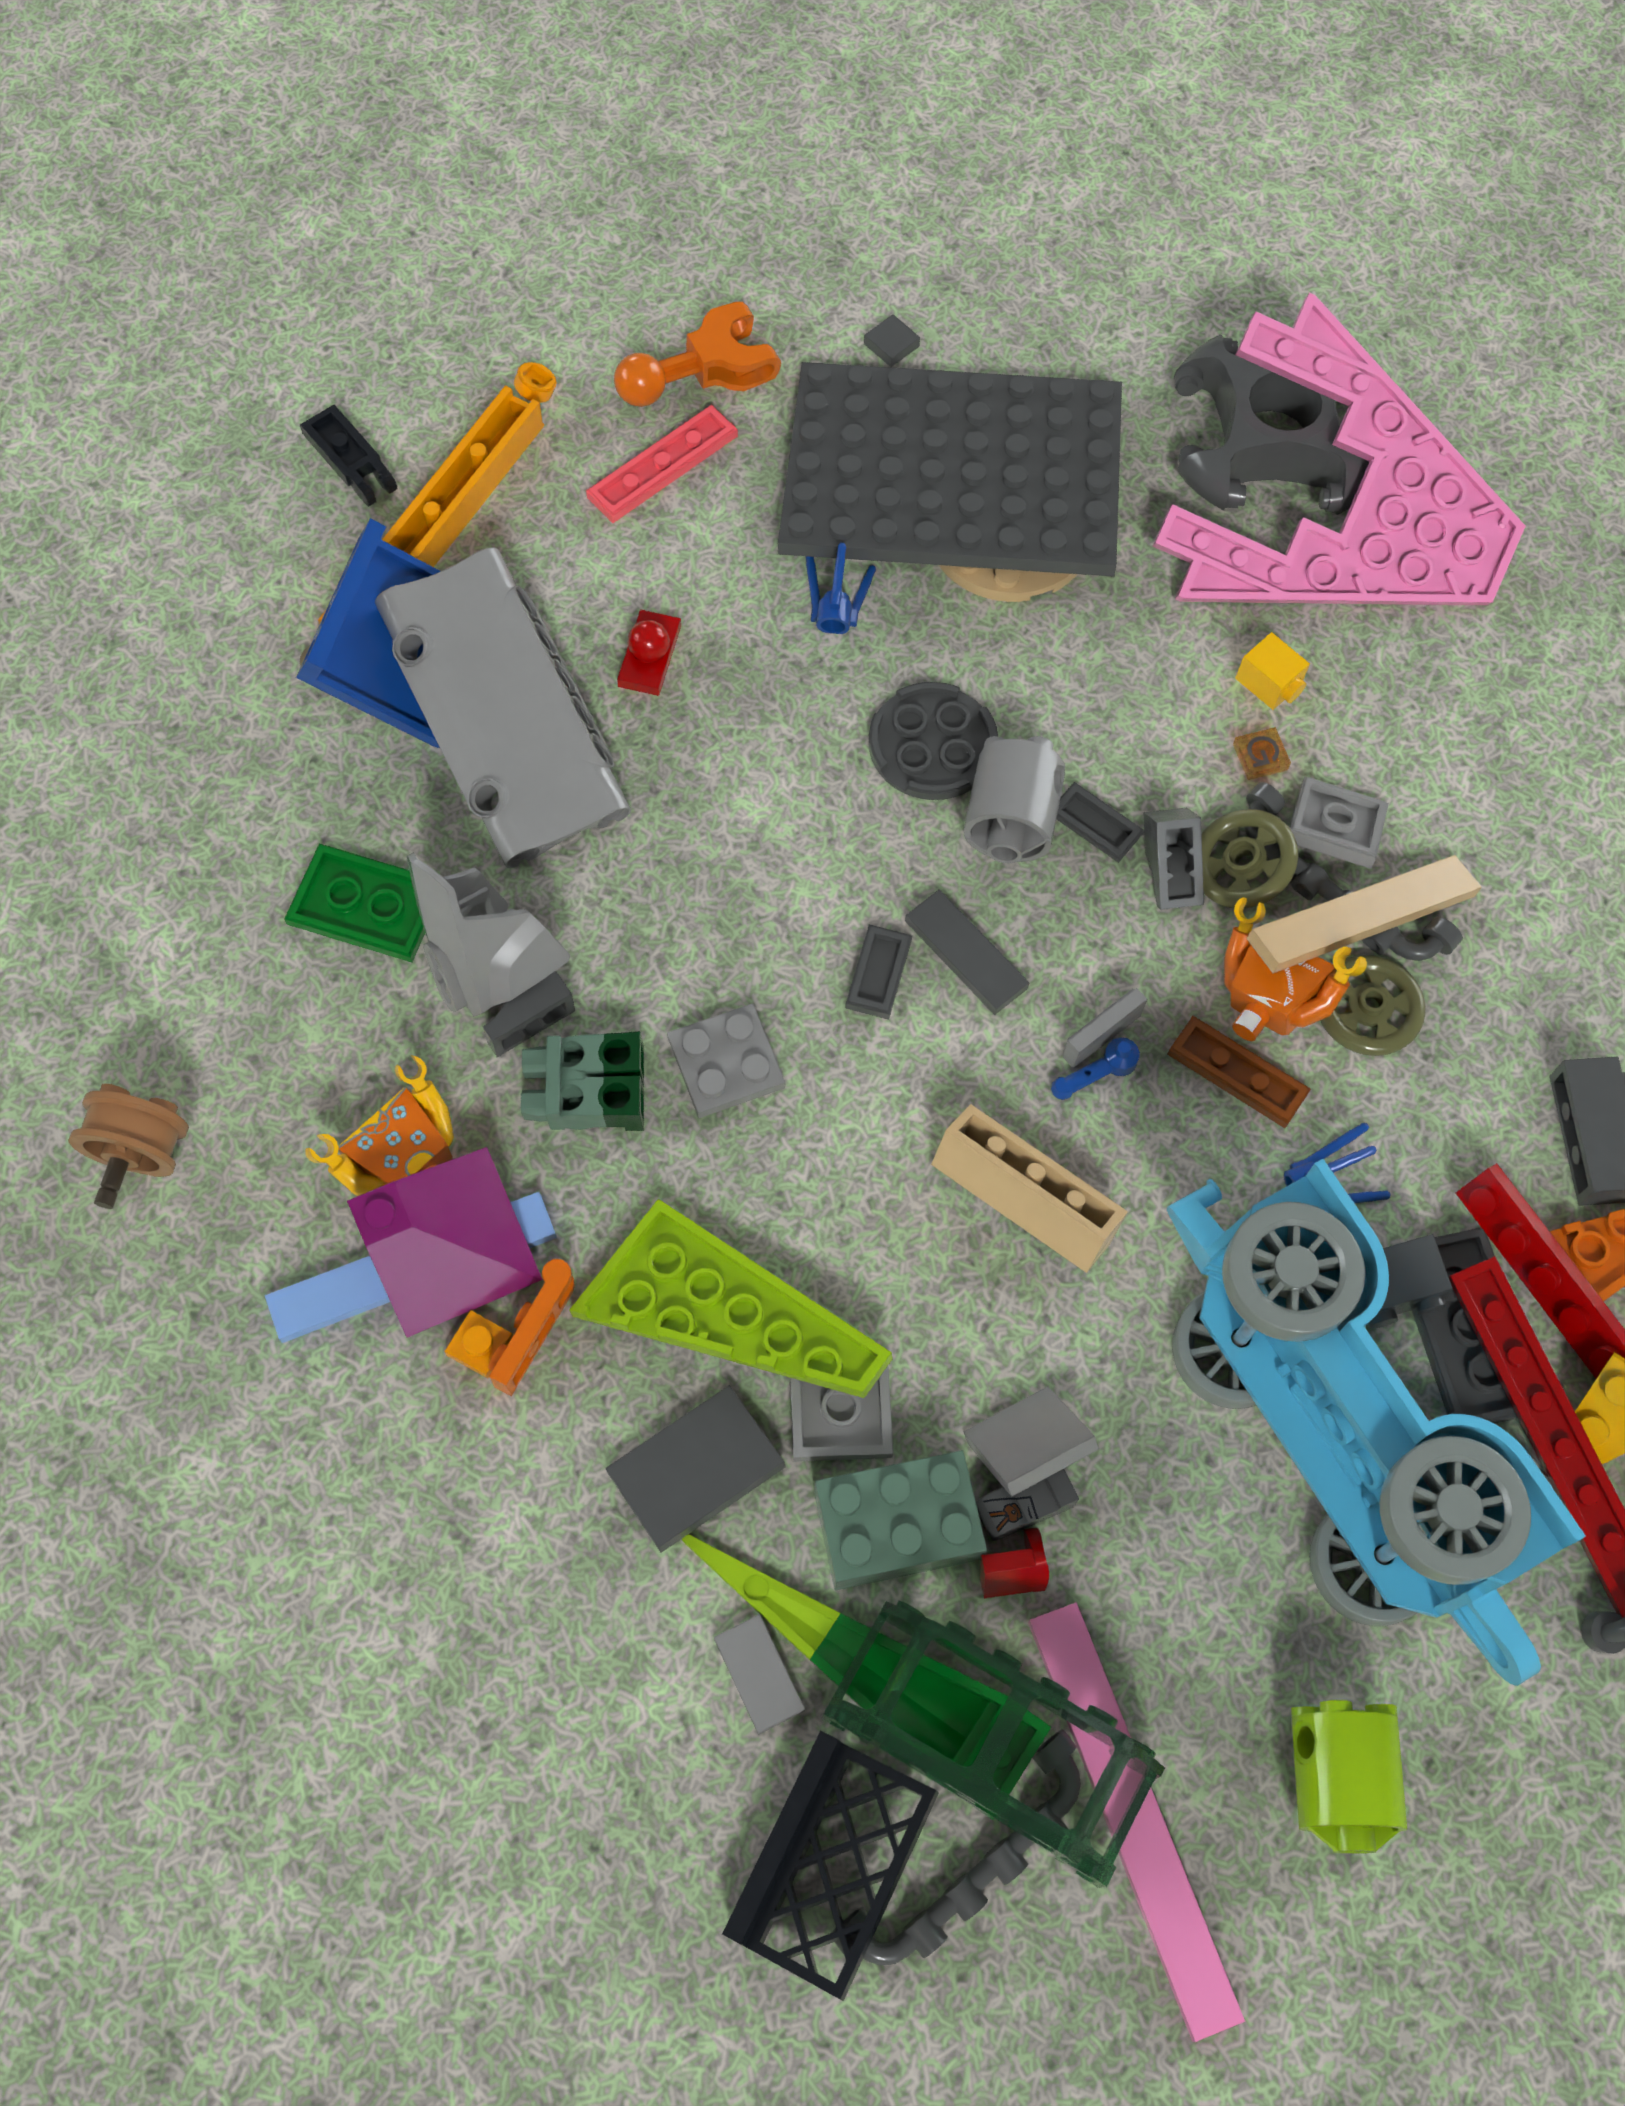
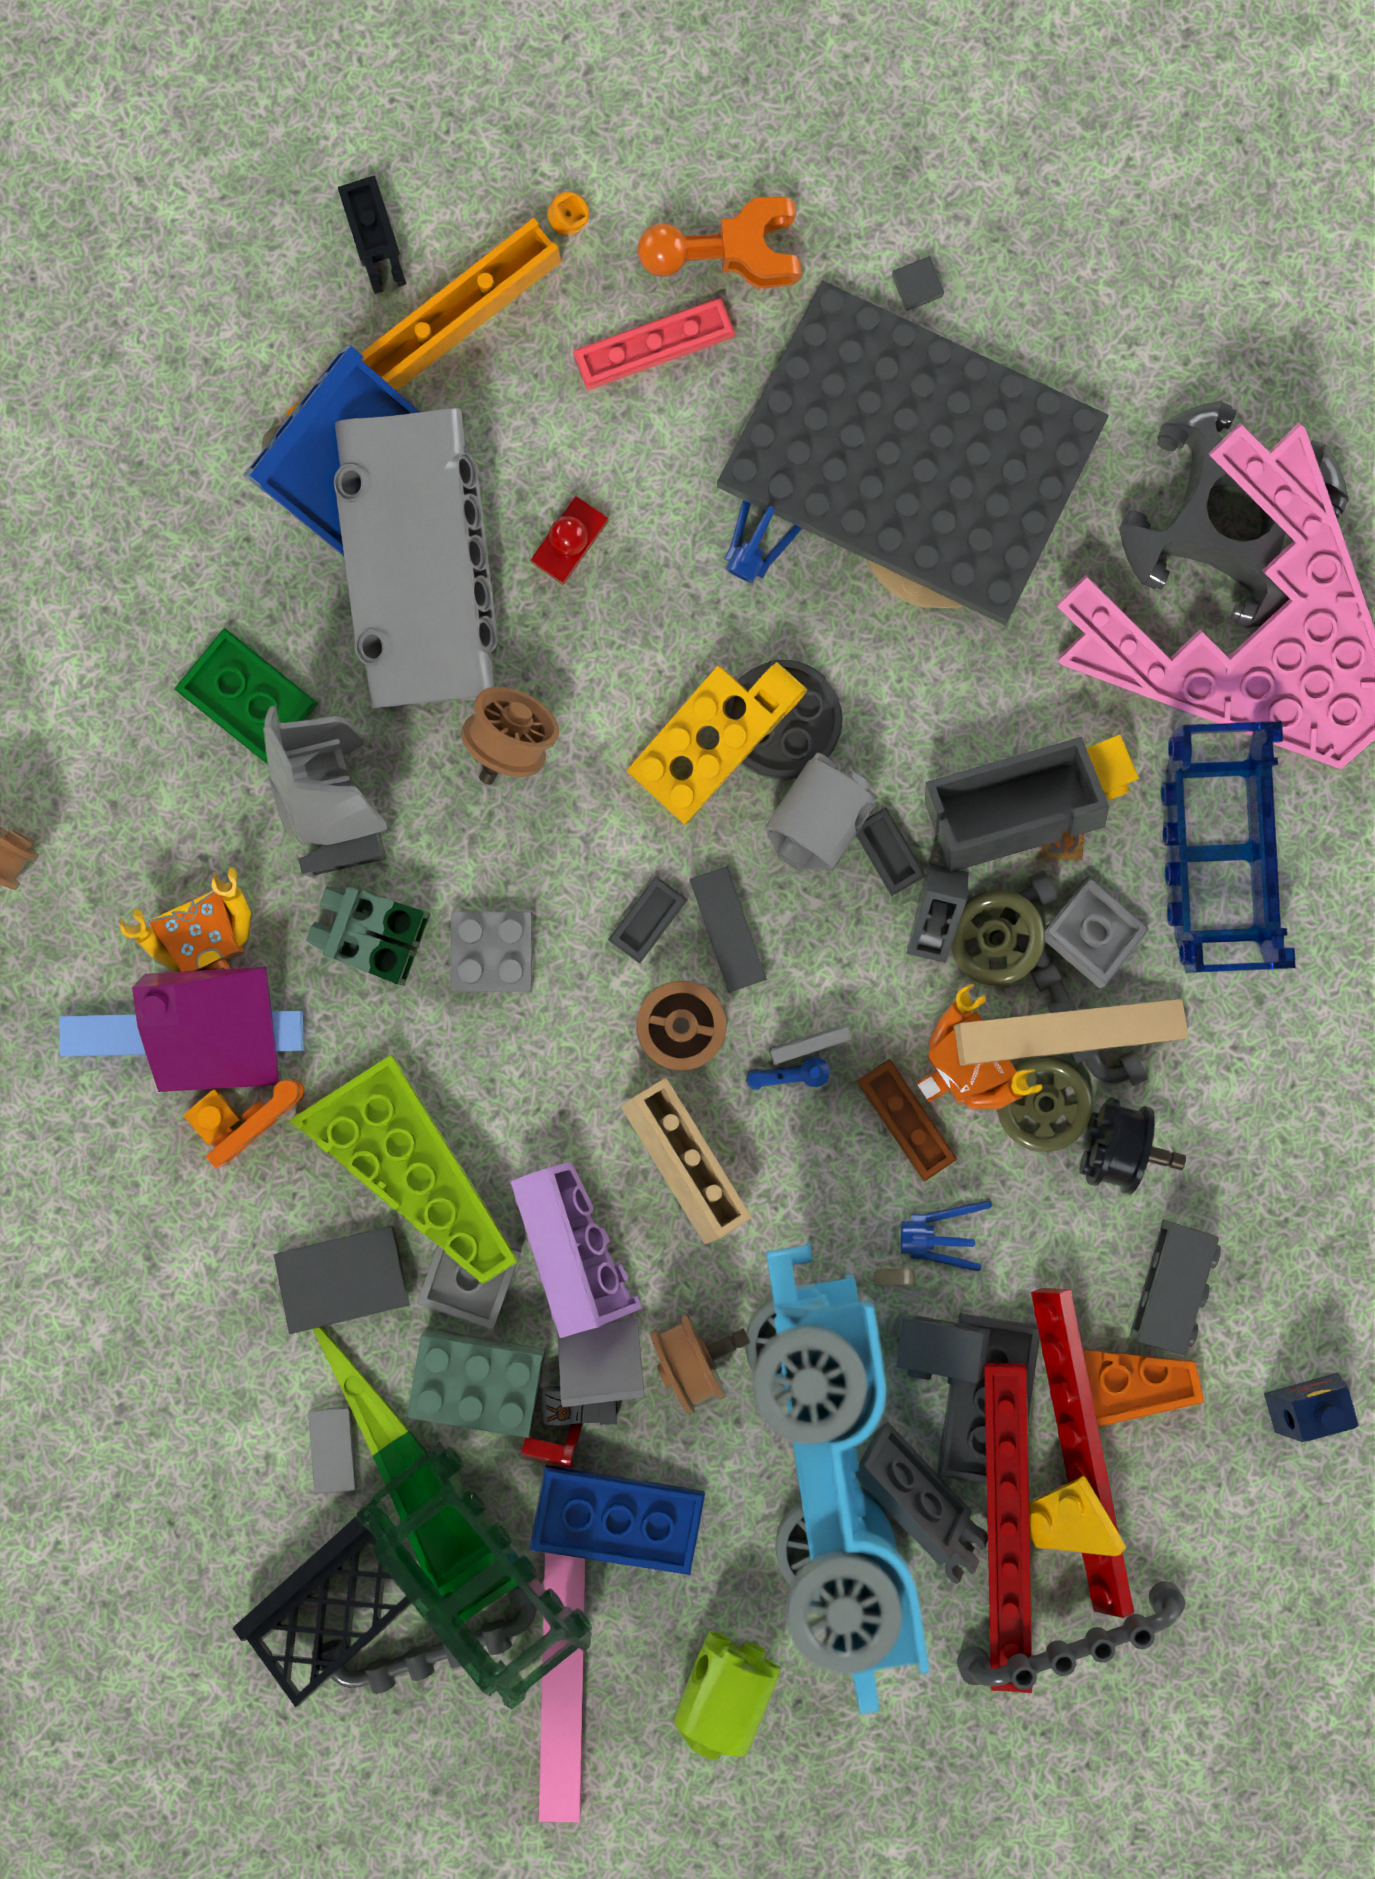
camera: 25 degrees right, 20 degrees up
(662, 830) = (509, 733): none -> medium nougat wheel
(916, 718) = (766, 706): none -> yellow hinge
(942, 1331) = (571, 1251): none -> lavender wedge
(962, 1053) = (681, 1025): none -> medium nougat wheel
(1126, 1620) = (617, 1520): none -> blue tile
(1133, 1394) = (690, 1363): none -> medium nougat wheel
(1203, 725) = (1016, 804): none -> dark grey piece
(1458, 696) = (1258, 851): none -> clear blue windscreen
(1475, 1002) = (1123, 1147): none -> black wheel

